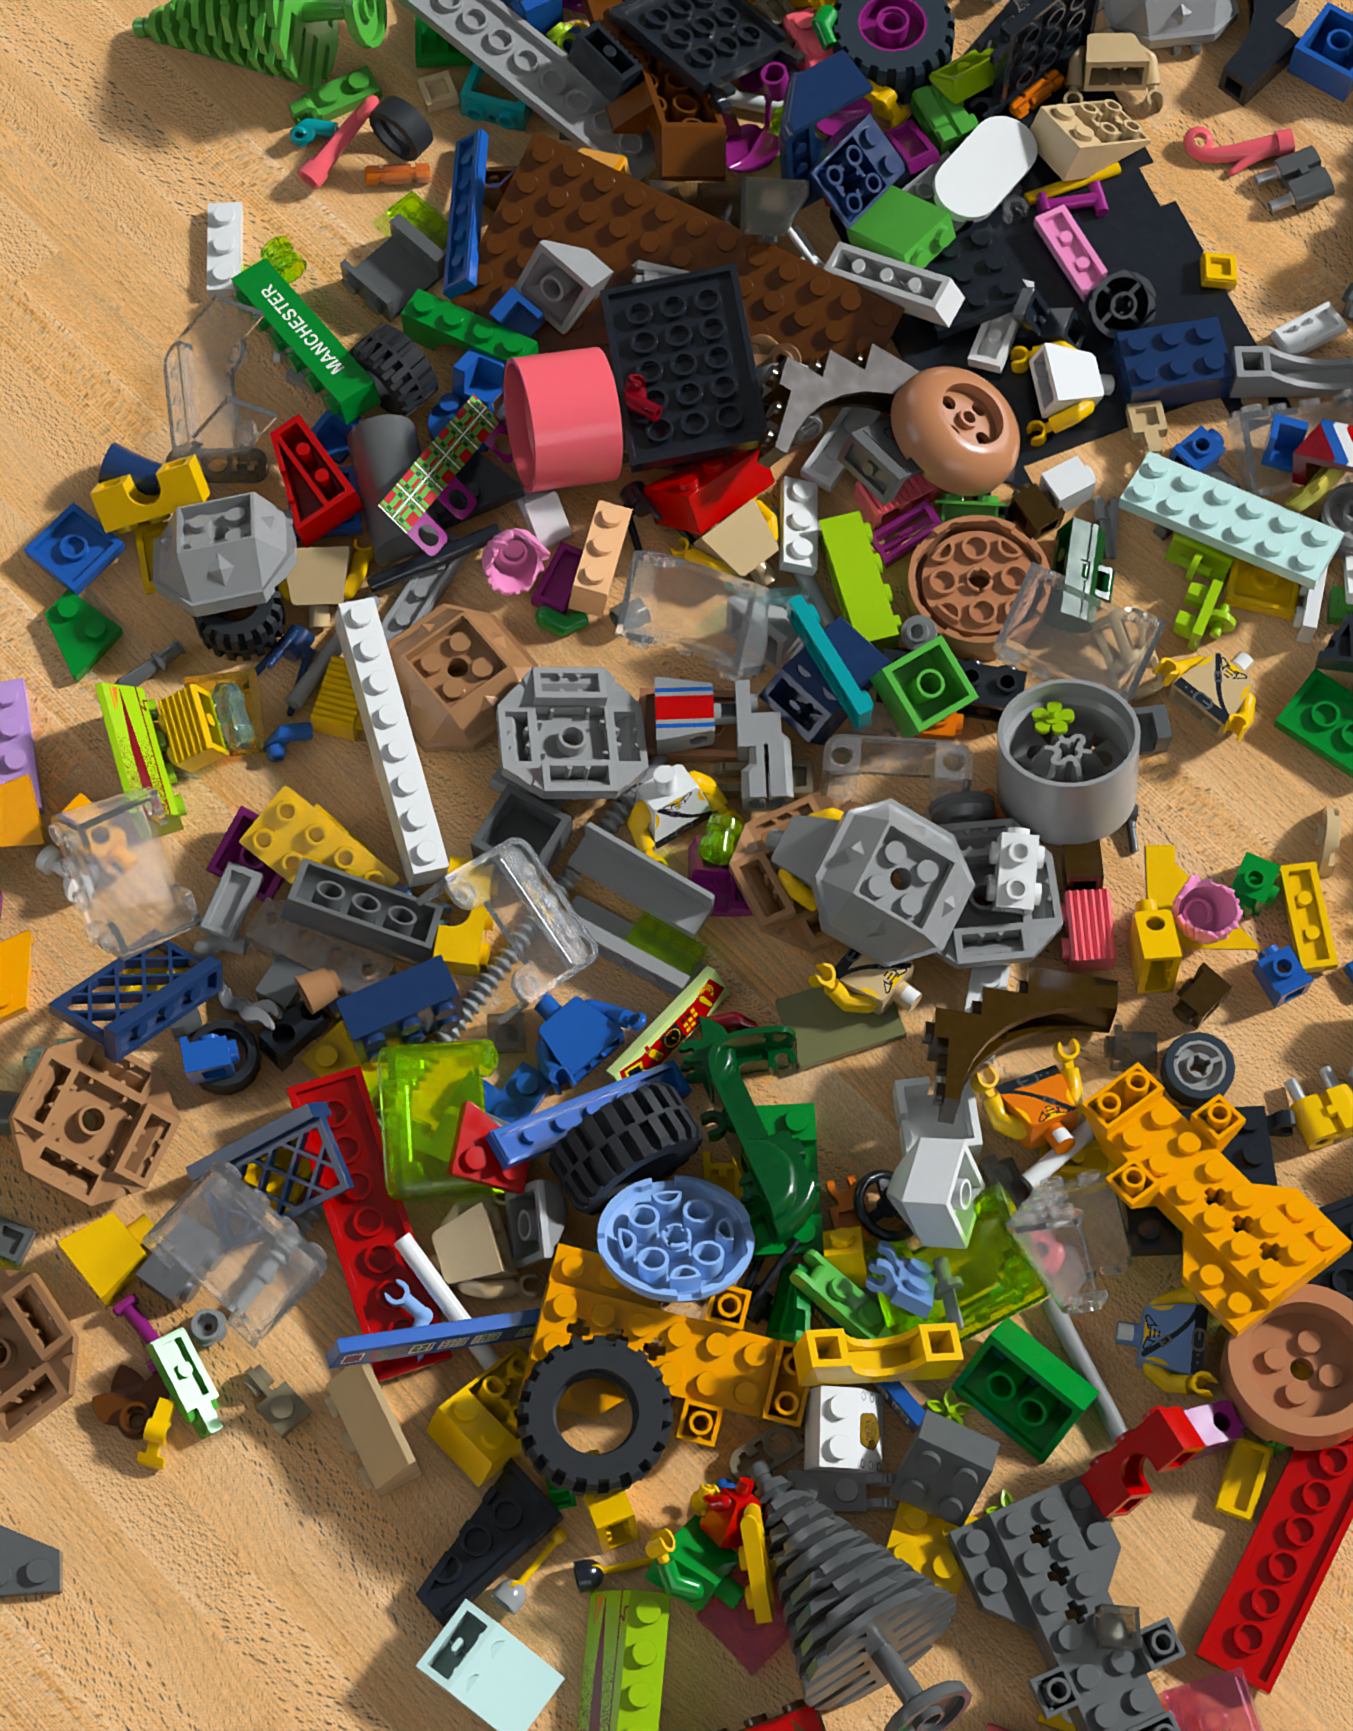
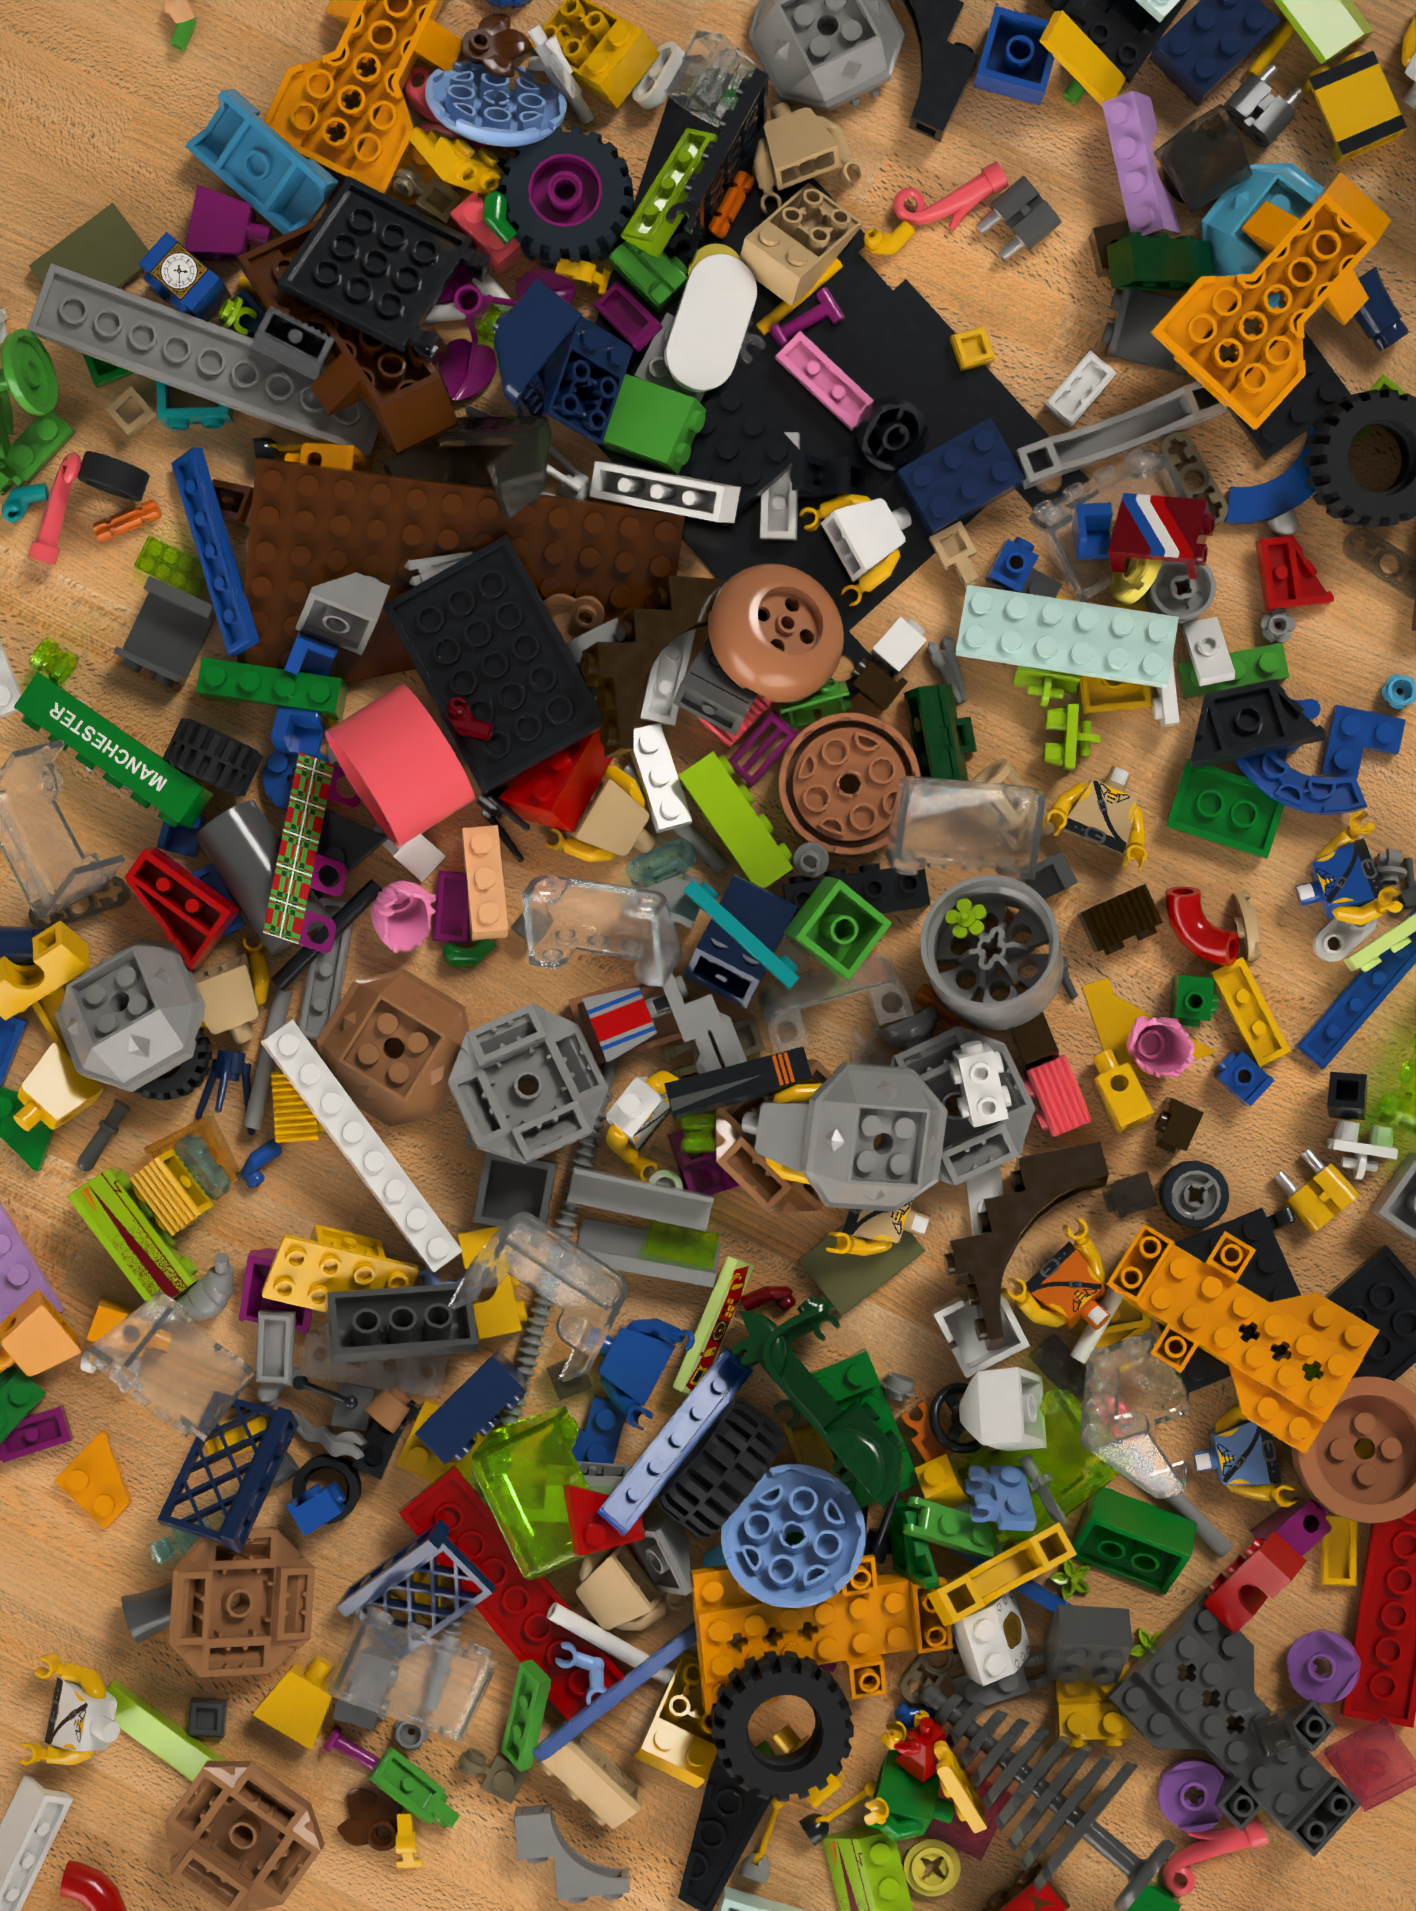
camera: 20 degrees left, 20 degrees up
(124, 608) = (55, 1092): none -> yellow torso
(192, 834) = (211, 1293): none -> light grey piece
(242, 946) = (301, 1382): none -> black hinge
(295, 1479) = (575, 1876): none -> light grey arch
(342, 1321) = (526, 1714): none -> bright green plate
(703, 1645) = (932, 1883): none -> light yellow gear
(775, 793) = (738, 1083): none -> black tile
(834, 1155) = (898, 1386): none -> light grey plate
(987, 1699) = (1176, 1781): none -> medium lavender plate
(1169, 166) = (888, 243): none -> yellow arm
(1203, 789) = (1120, 919): none -> dark brown brick
(1213, 1595) = (1343, 1660): none -> medium lavender plate
(1276, 826) = (1196, 931): none -> red cylinder

